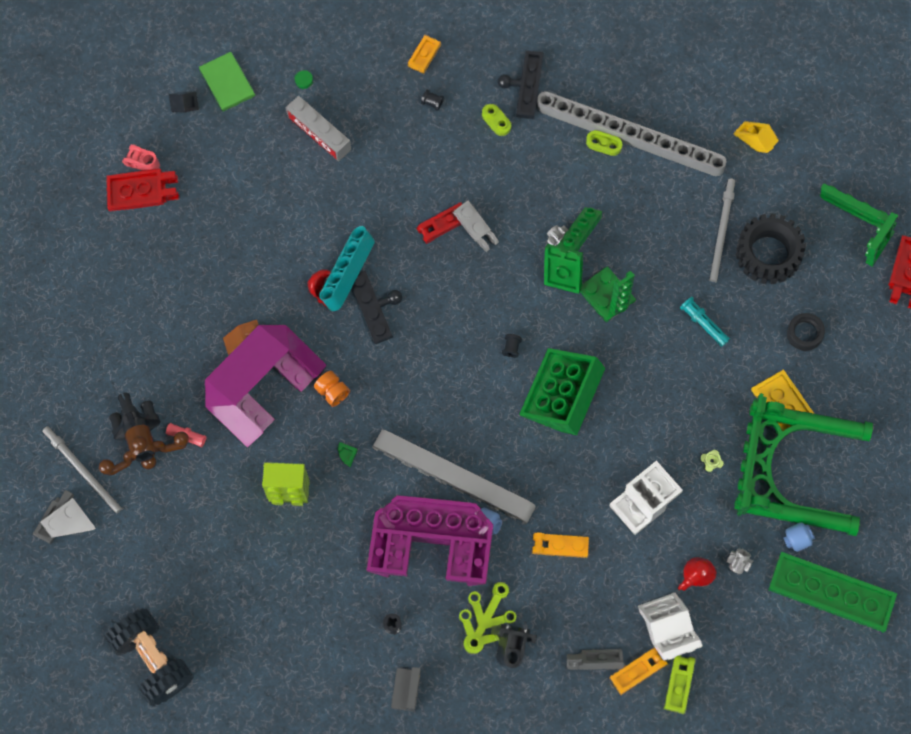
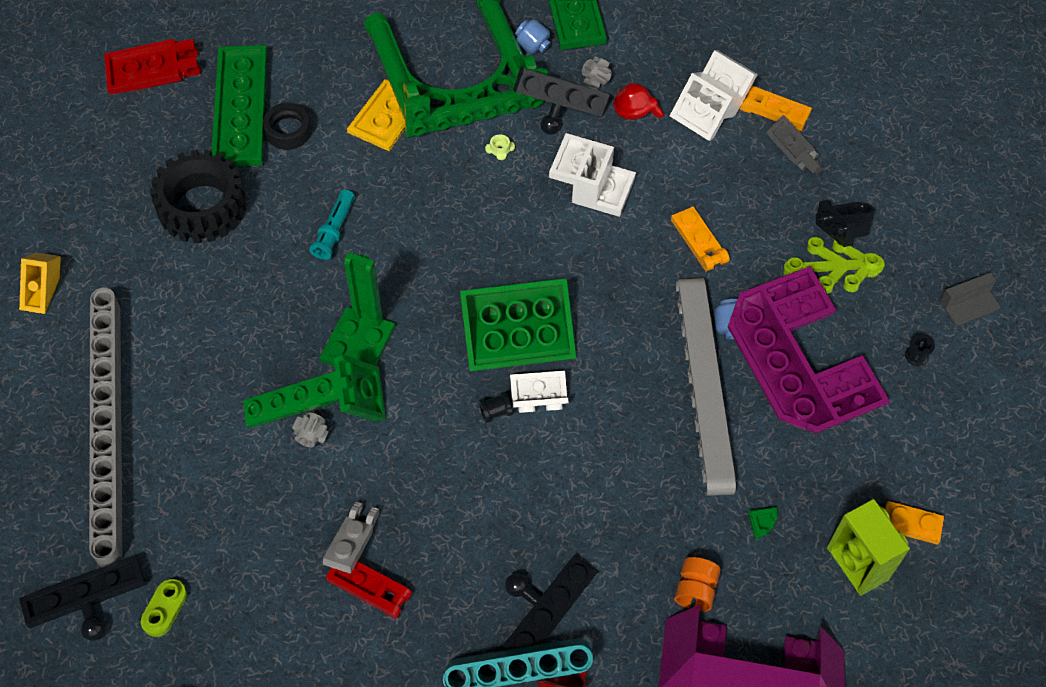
camera: 125 degrees left, 10 degrees down
(291, 538) = (915, 522): none -> light orange plate
(506, 375) = (538, 390): none -> white bracket
(605, 140) = (136, 450): lime plate -> none
(679, 684) = (770, 66): lime plate -> none
(725, 513) = (560, 93): none -> black plate
(728, 197) = (145, 276): light grey bar -> none
(843, 311) = (240, 104): none -> green plate
(864, 211) = (117, 95): green bracket -> none

